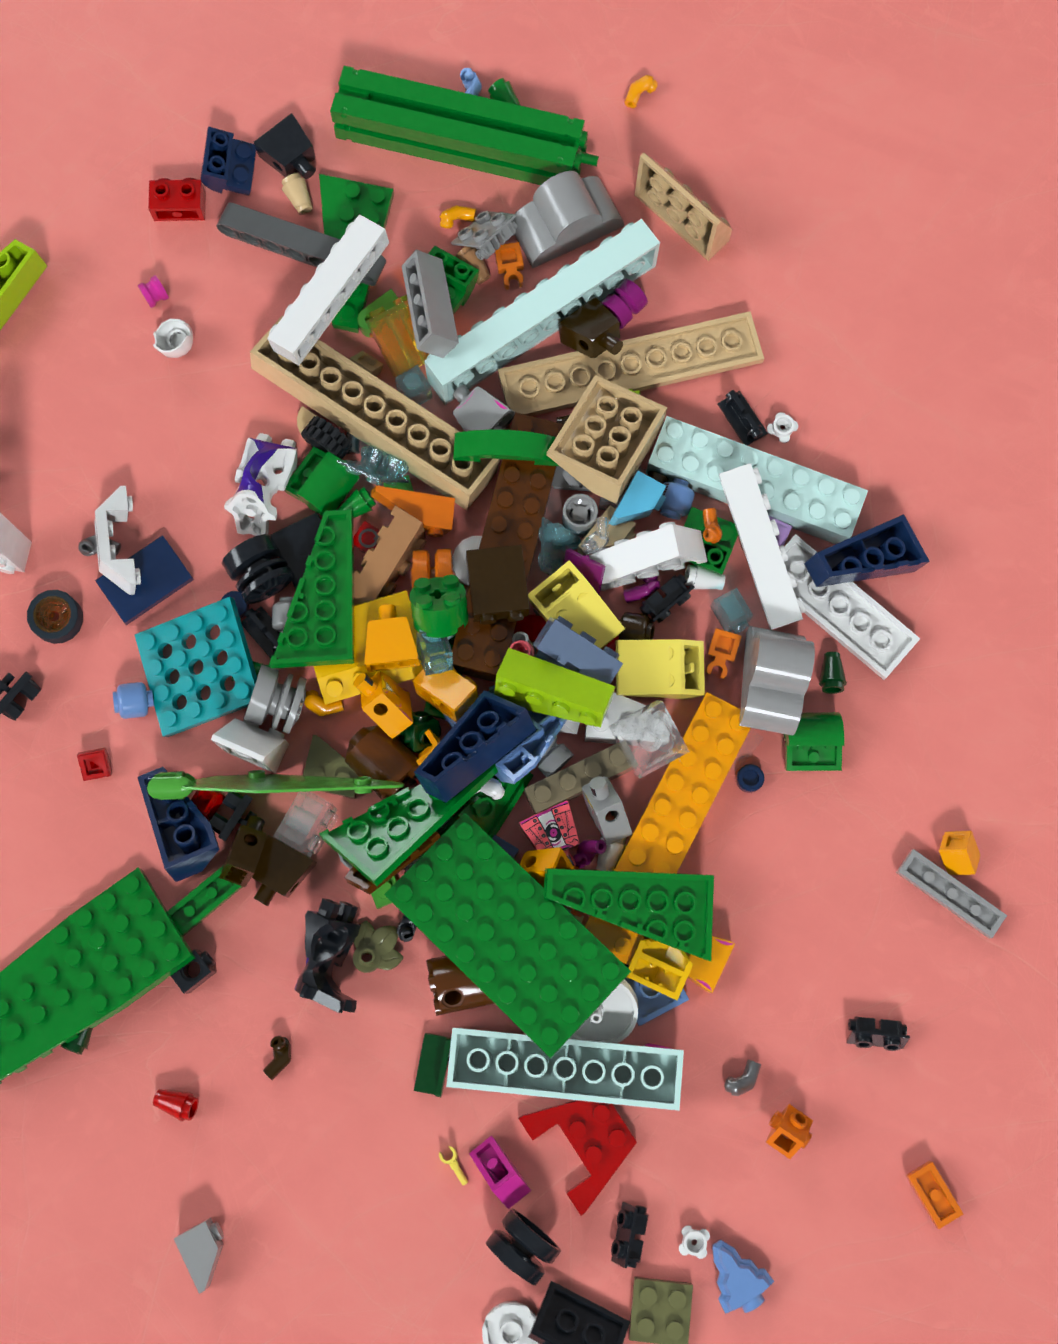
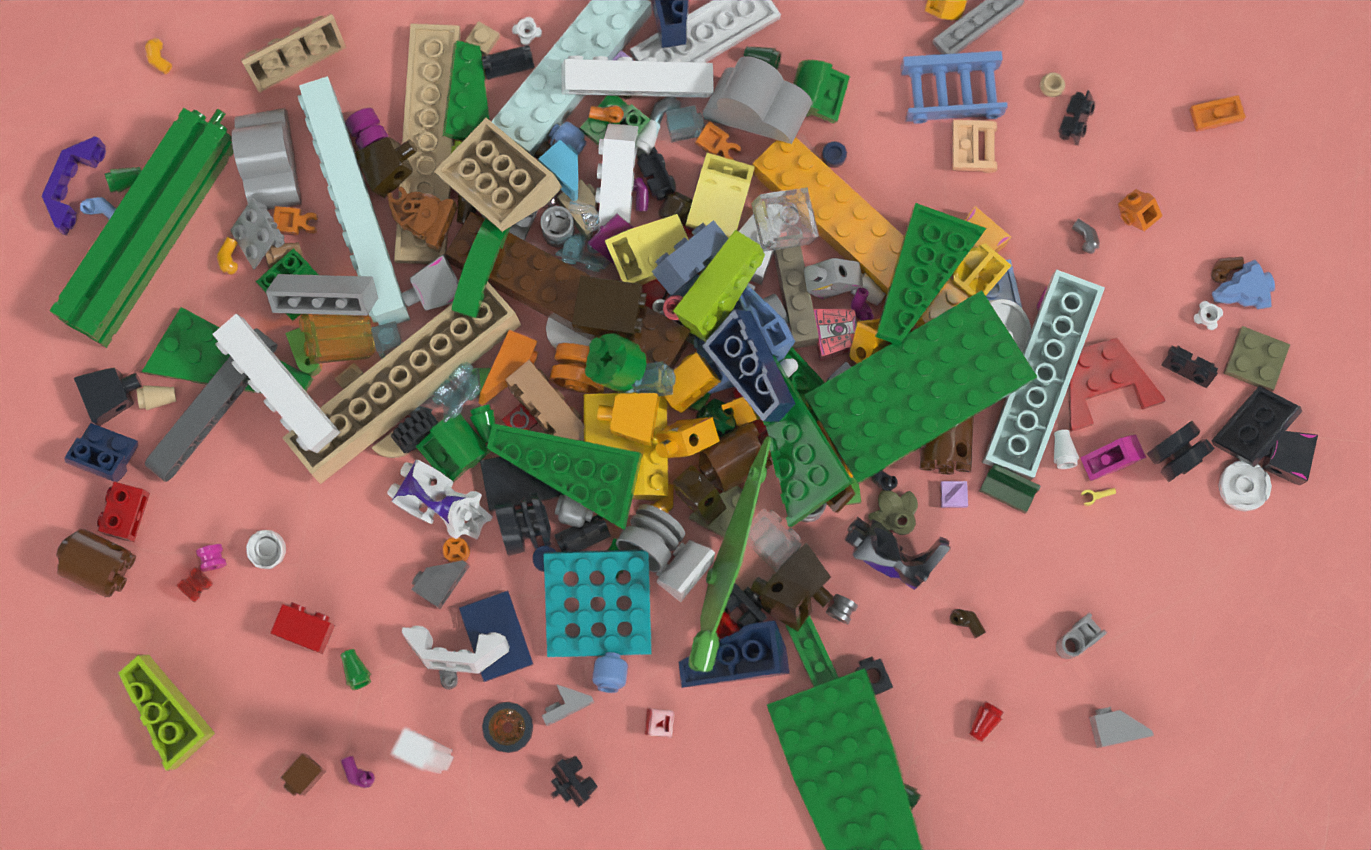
camera: 75 degrees left, 0 degrees up
(76, 456) = (355, 671): none -> green cone
(94, 670) = (573, 701): none -> light grey slope
(103, 394) = (303, 628): none -> red brick
(117, 187) = (94, 562): none -> reddish brown cylinder
(120, 283) = (194, 584): none -> clear red wheel
(181, 508) = (439, 581): none -> flat silver slope
(214, 512) = (453, 547): none -> orange wheel
(256, 918) = (842, 609): none -> flat silver wheel
(292, 1187) = (1083, 634): none -> light grey piece
(337, 732) = (695, 490): none -> dark brown torso
(412, 1006) = (954, 494): none -> lavender tile
(492, 1115) = (1064, 450): none -> white cone
(500, 43) = (87, 152): none -> dark purple slope
(546, 384) = (425, 218): none -> dark orange piece
(694, 386) = (466, 92): none -> green wing
(744, 585) = (662, 106): none -> flat silver arm
(757, 1246) = (1223, 267): none -> reddish brown arm
(759, 387) = (483, 37): none -> tan plate
(805, 917) = (966, 145): none -> light nougat plate
(883, 864) = (962, 64): none -> medium blue fence
(906, 996) = (1052, 85): none -> tan plate

